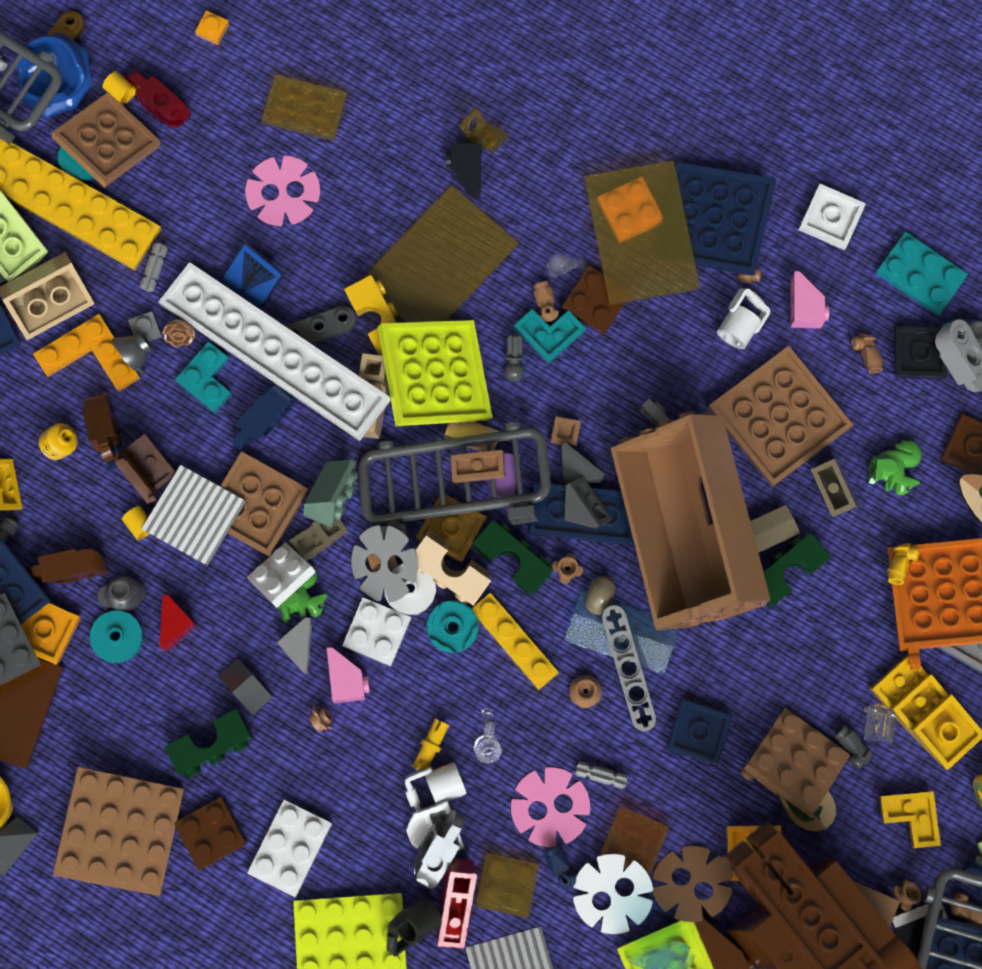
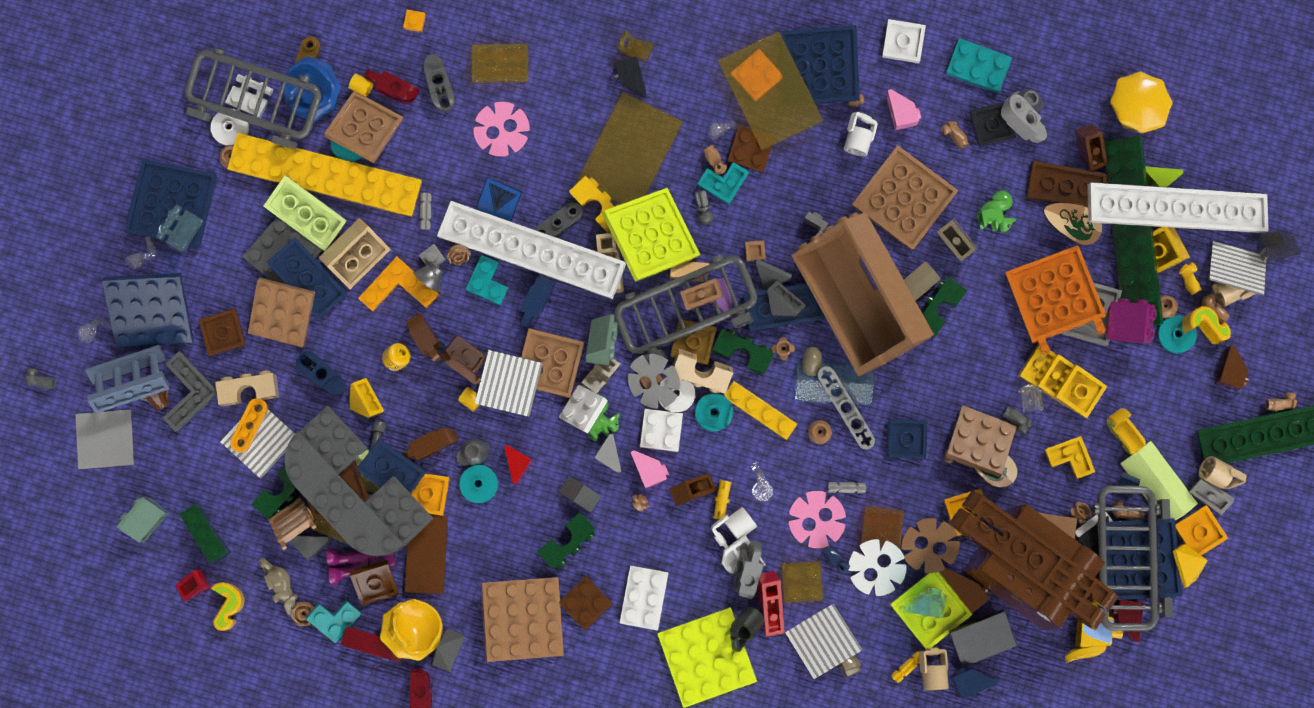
camera: 10 degrees left, 5 degrees up
(219, 92) = (434, 69): none -> dark grey piece
(395, 721) = (692, 489): none -> reddish brown slope
(899, 565) = (1016, 284): yellow arm -> none

